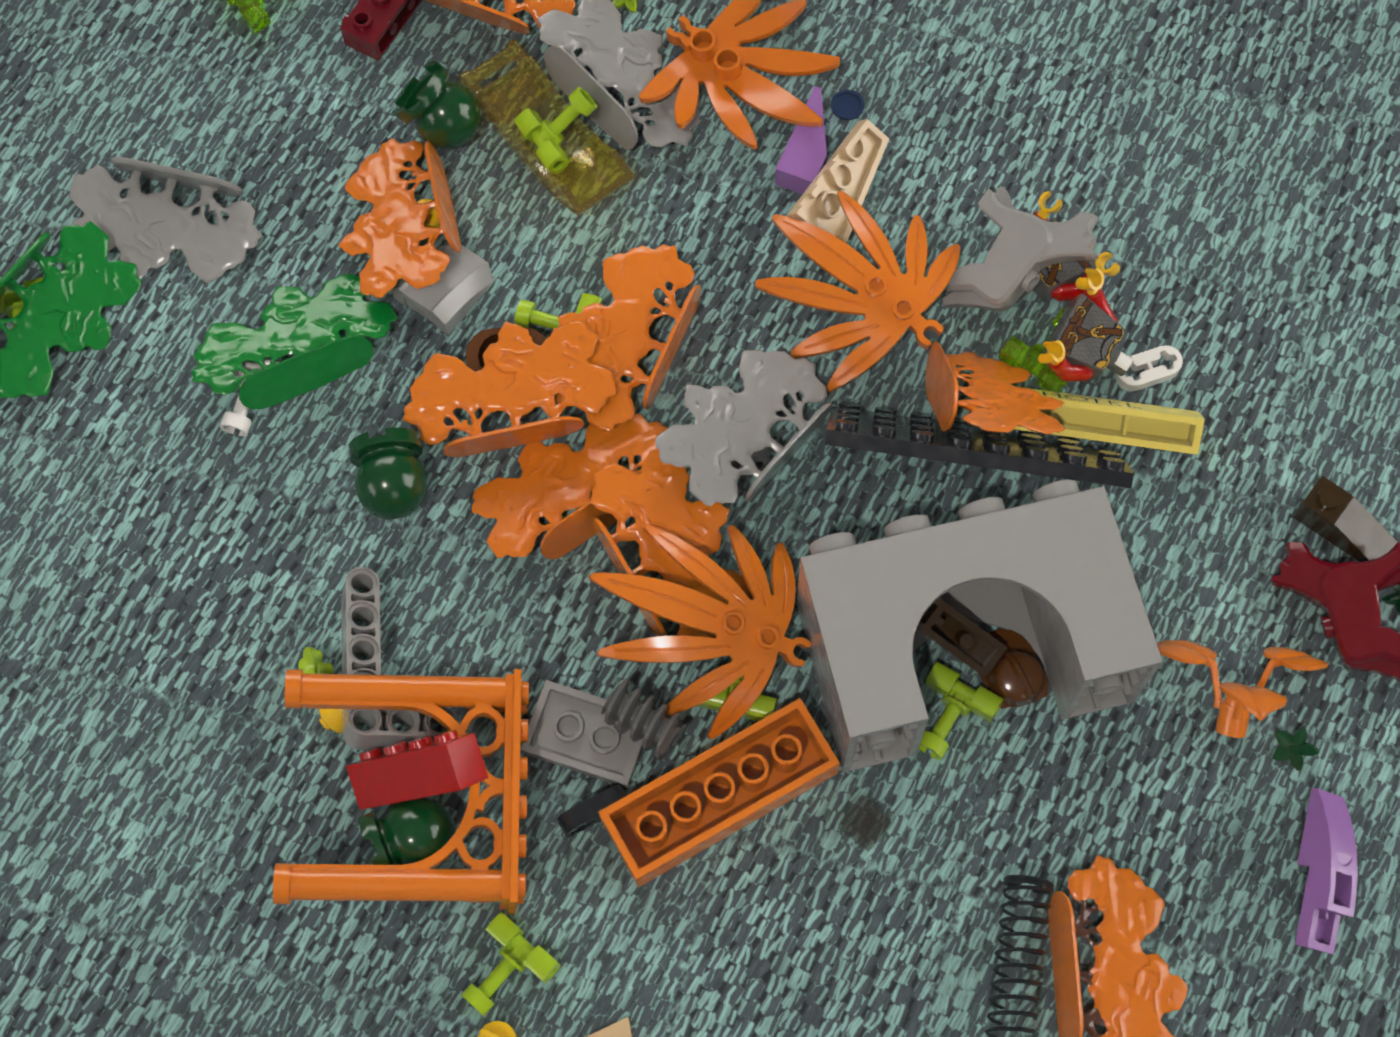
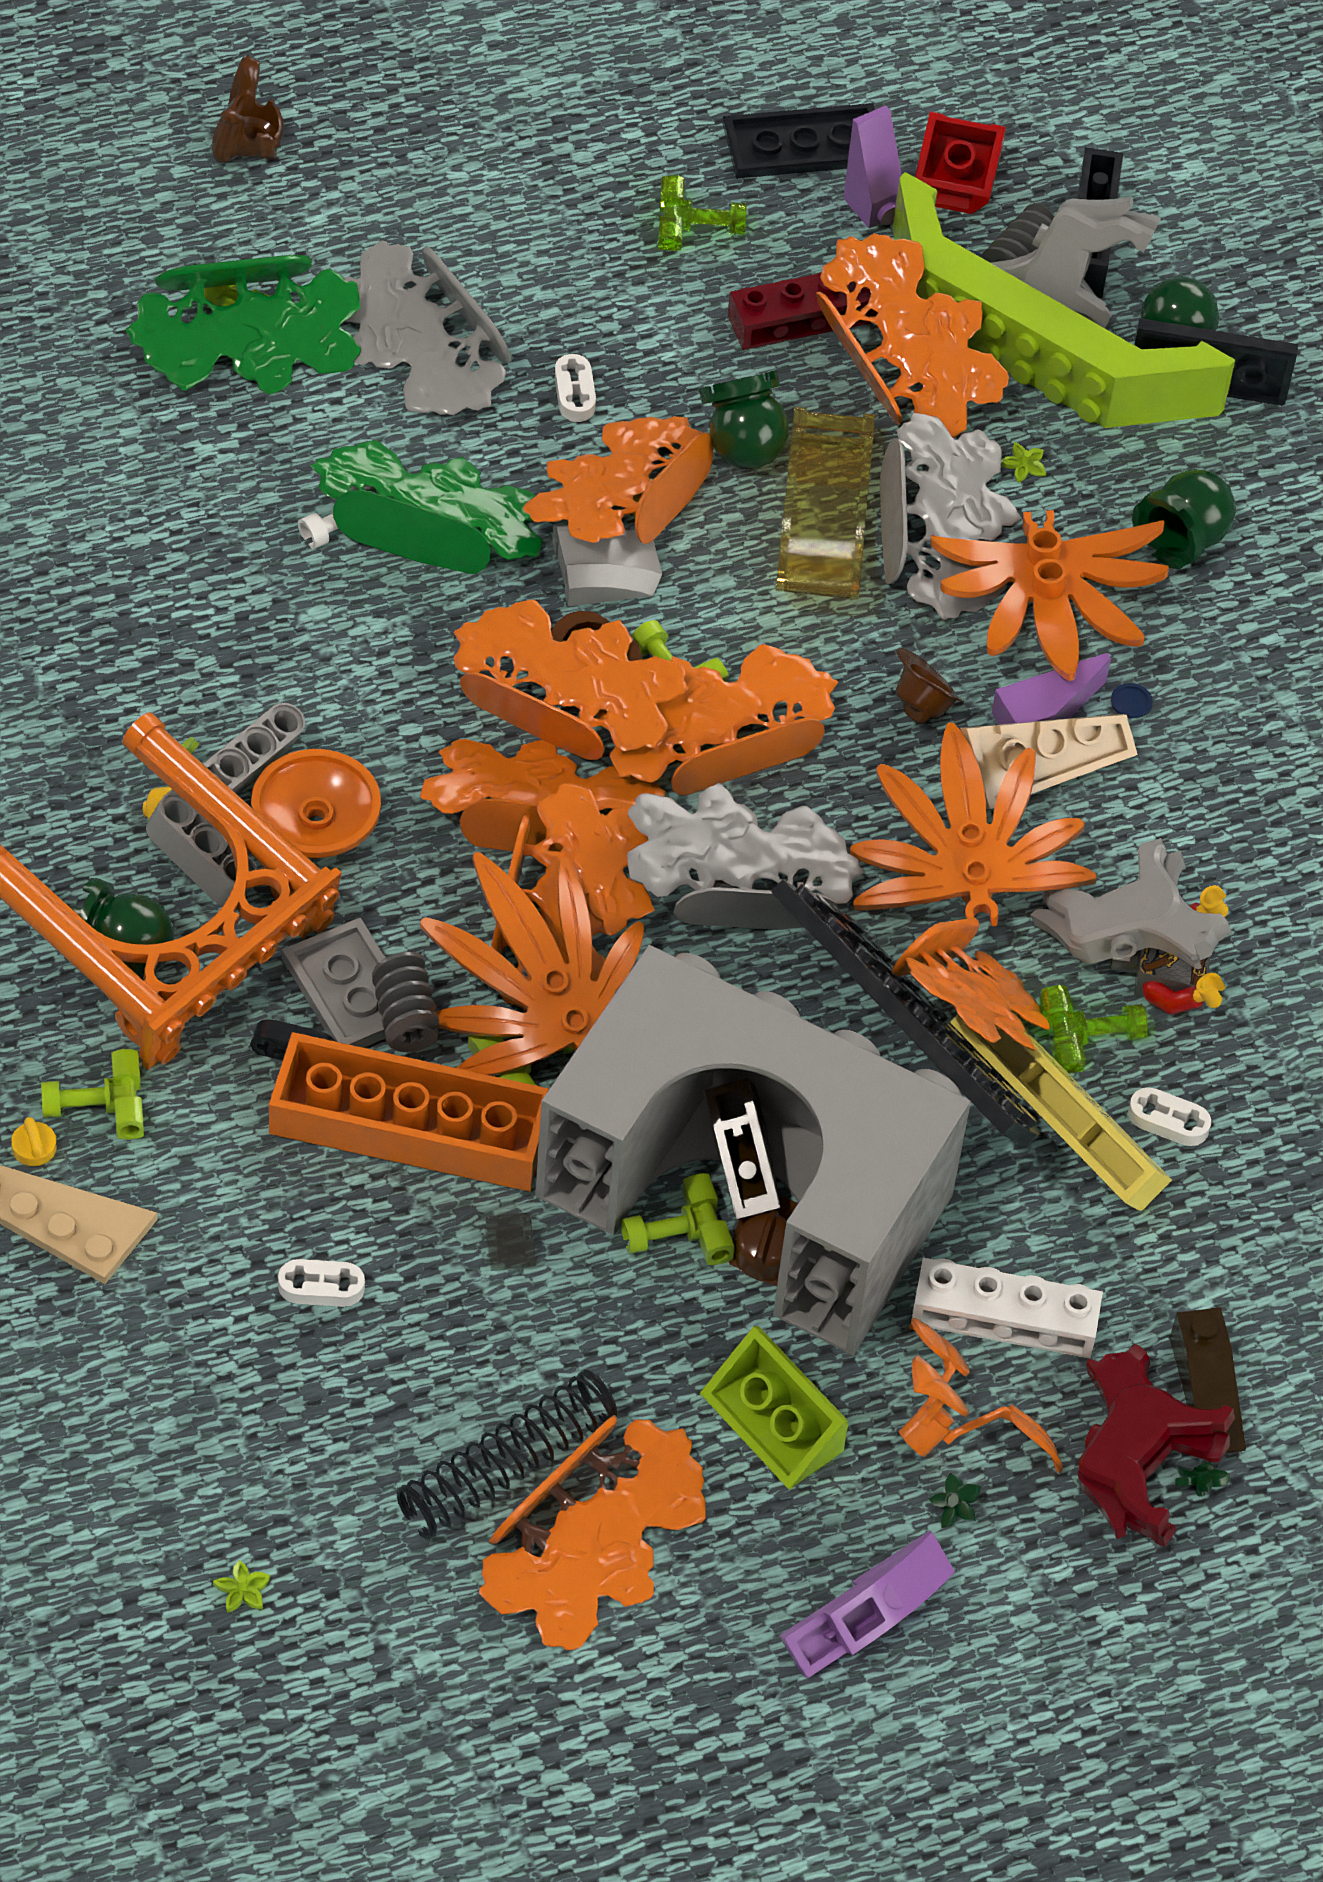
camera: 35 degrees right, 15 degrees down
(297, 181) = (566, 388): none -> white beam
(389, 475) = (398, 658): dark green tile -> none
(416, 770) = (180, 874): red brick -> none
(433, 602) = (322, 786): none -> orange dish
(548, 134) = (824, 512): lime bar -> none
(727, 205) = (923, 689): none -> reddish brown piece
(772, 957) = (321, 1282): none -> white beam
(1086, 336) = (1123, 1031): torso -> none
(1138, 789) = (776, 1409): none -> lime slope
(1202, 580) = (1007, 1307): none -> white brick

